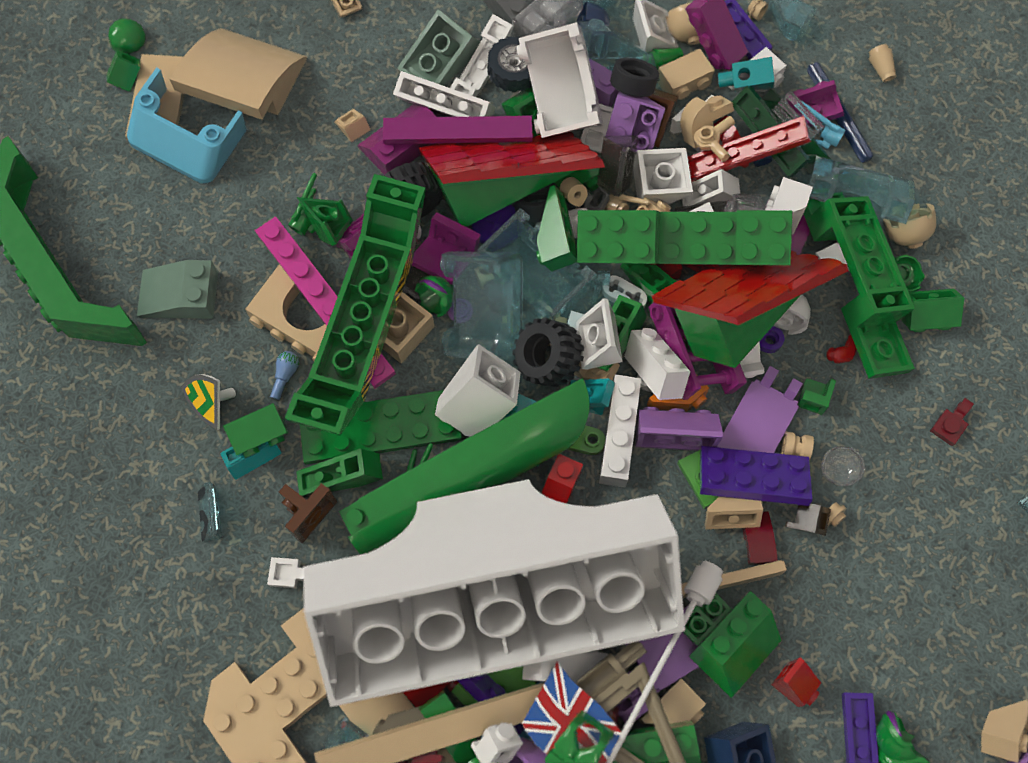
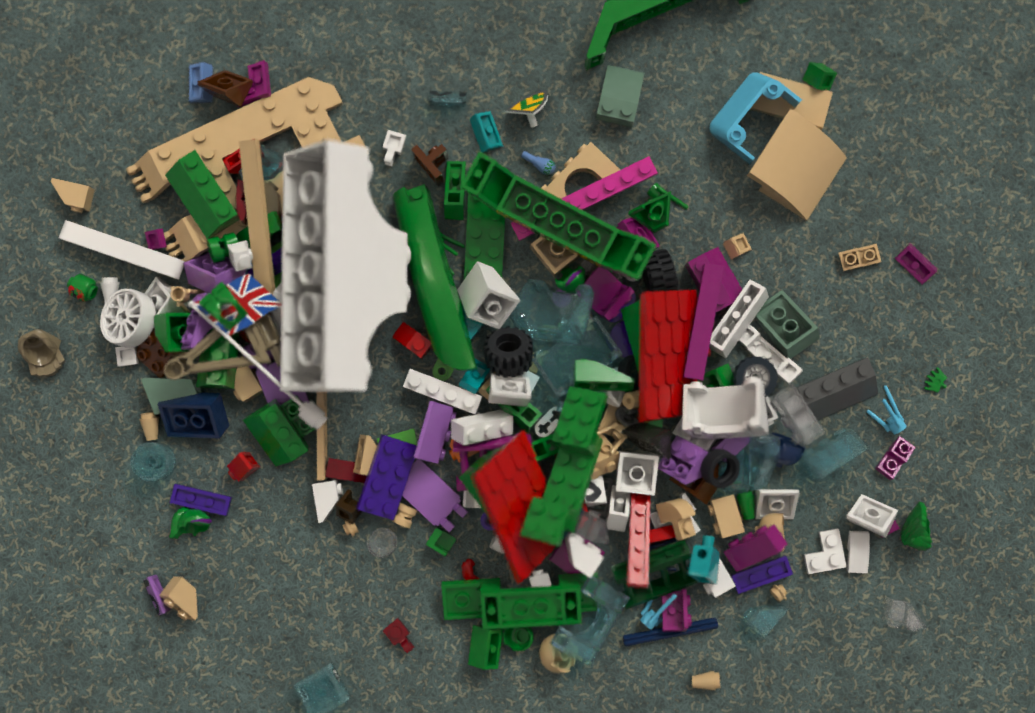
camera: 100 degrees right, 15 degrees up
(126, 35) = (852, 82): green hair -> none
(256, 430) = (496, 137): green slope -> none
(708, 138) = (656, 513): tan piece -> none
(802, 108) = (661, 588): clear tile -> none
(805, 555) = (326, 497): none -> white slope

